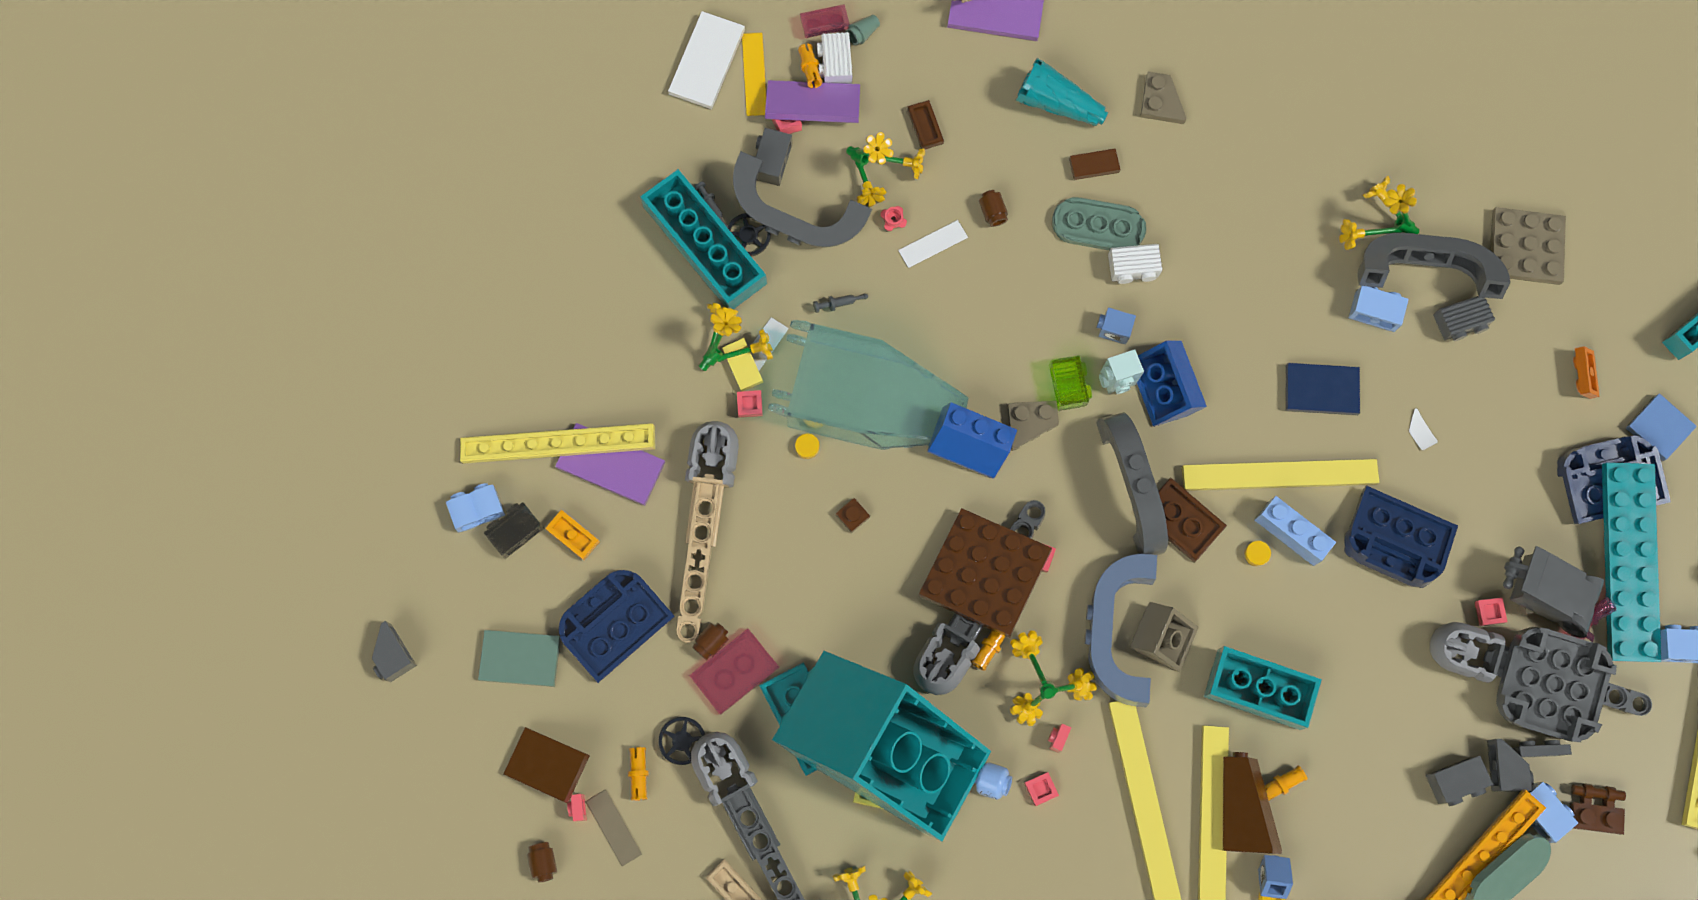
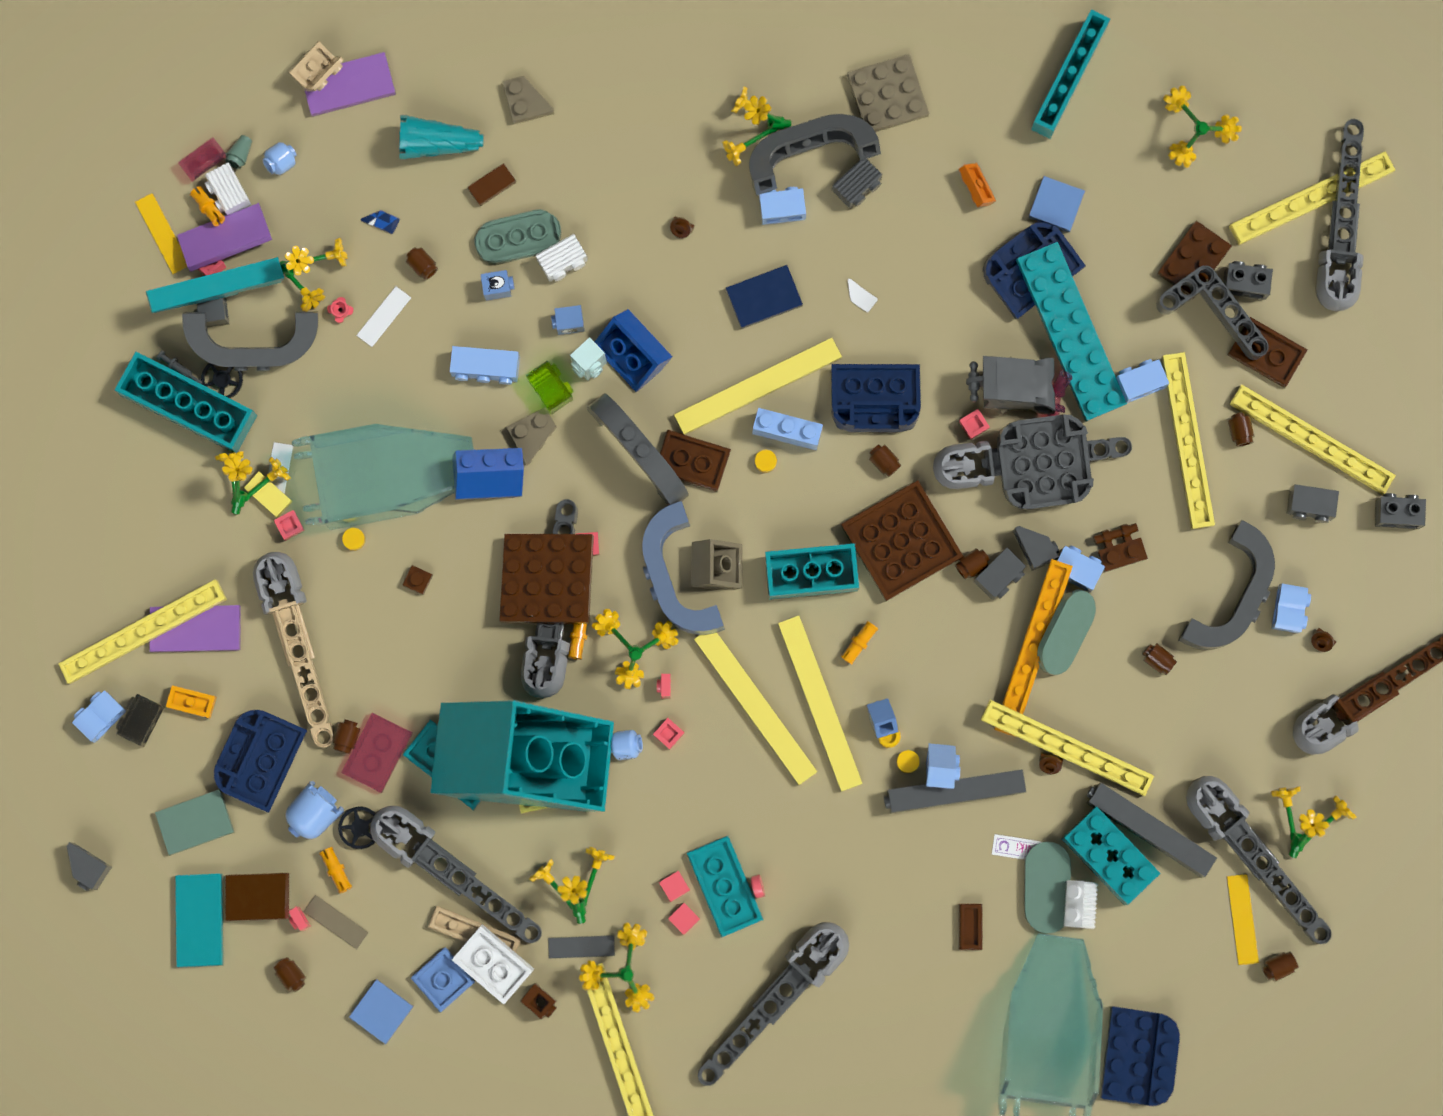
camera: 20 degrees left, 5 degrees up
(477, 761) = (199, 920): none -> teal tile
(641, 703) = (312, 812): none -> light blue cylinder
(706, 60) = (115, 240): white tile -> none
(785, 140) = (215, 285): none -> teal slope
(837, 302) = (327, 402): dark grey piece -> none
(899, 51) = (279, 158): none -> light blue head
(925, 125) = (331, 214): reddish brown tile -> none
(972, 153) = (382, 220): none -> dark blue sticker
(1013, 332) = (484, 365): none -> light blue brick
(1059, 261) = (497, 285): none -> medium blue brick
(1246, 808) = (837, 674): reddish brown slope -> none
(1266, 285) = (681, 227): none -> reddish brown plate
(1368, 698) = (902, 540): none -> reddish brown plate
(1383, 607) = (884, 460): none -> reddish brown brick
(1434, 755) = (972, 563): none -> reddish brown brick
(1550, 748) = (1064, 515): dark grey plate -> none

